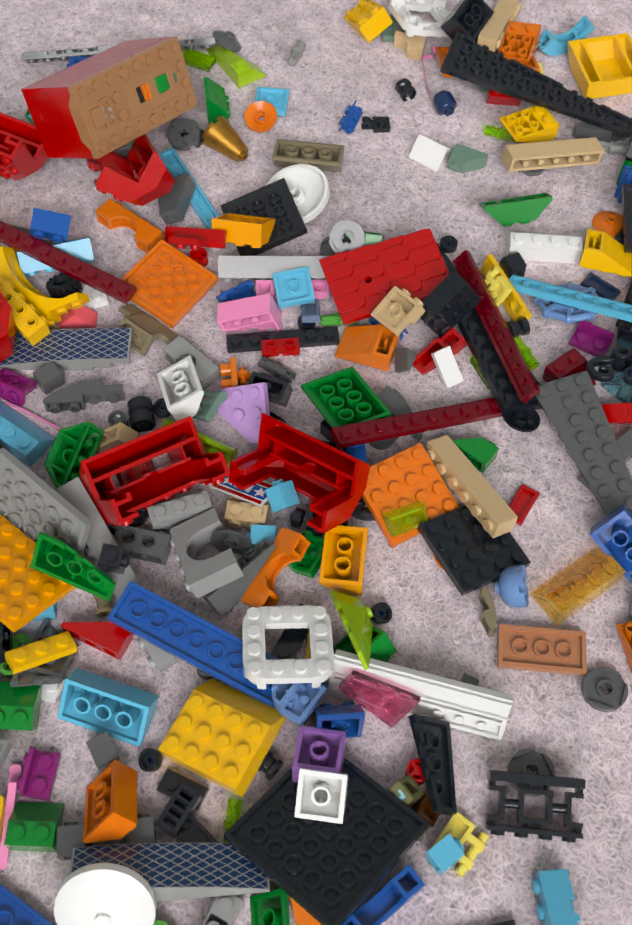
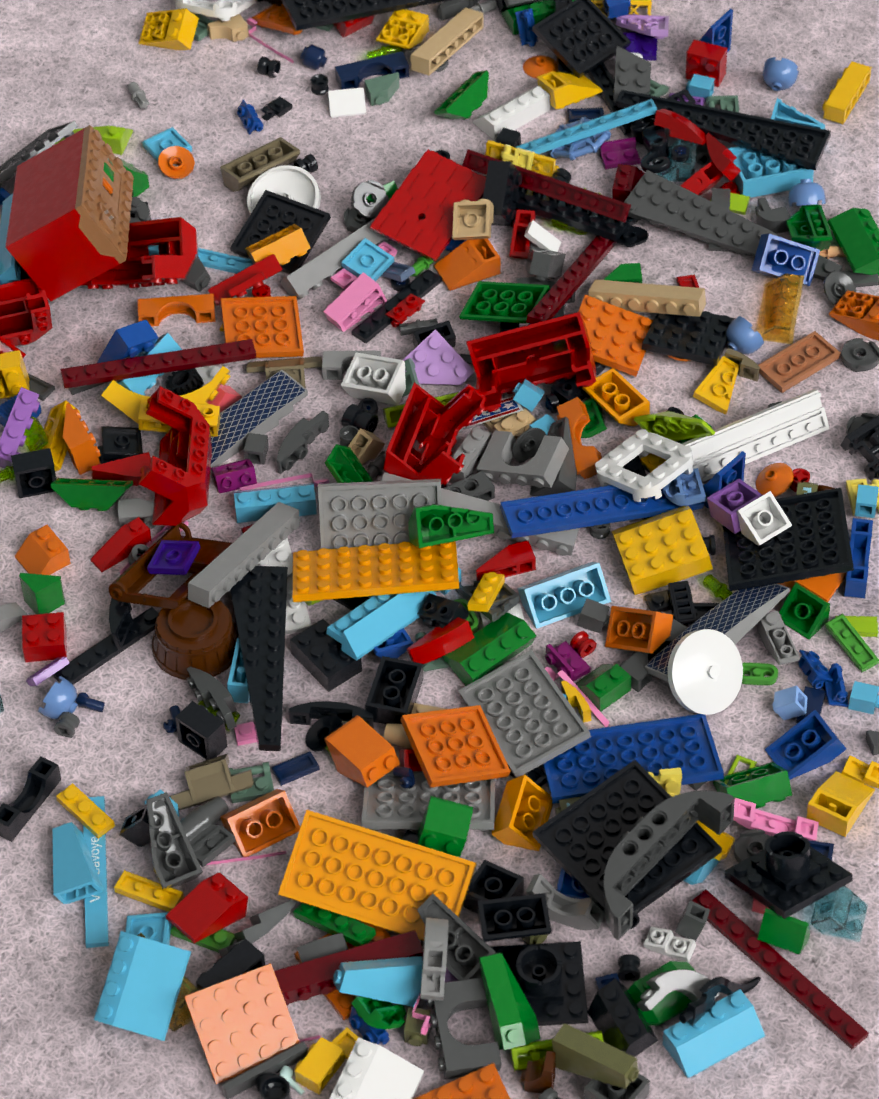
camera: 40 degrees left, 10 degrees down
(66, 770) = (583, 644): none -> red wheel
(103, 607) = (485, 545): dark tan bush -> none
(113, 559) = (474, 496): black brick -> none
(150, 760) = (628, 599): black tile -> none
(225, 140) = (173, 197): pearl gold cone -> none
(227, 40) = (67, 117): dark grey dish -> none
(230, 369) = (394, 349): orange hips -> none
(241, 291) = (323, 298): blue hinge -> none
(348, 181) = (308, 163): none -> black wheel
(379, 697) = (721, 453): clear pink wing -> none
(398, 758) = (774, 478): none -> orange dish
(404, 360) = (507, 256): dark grey slope -> none
(405, 518) = (629, 346): clear neon green slope -> none
(419, 389) = (544, 263): none -> dark grey wedge
(426, 126) = (319, 84): none -> black wheel
(436, 761) = (804, 460): black wing -> none
(448, 614) = (718, 385): none -> yellow wing
(457, 133) = (351, 74): none -> dark blue arch

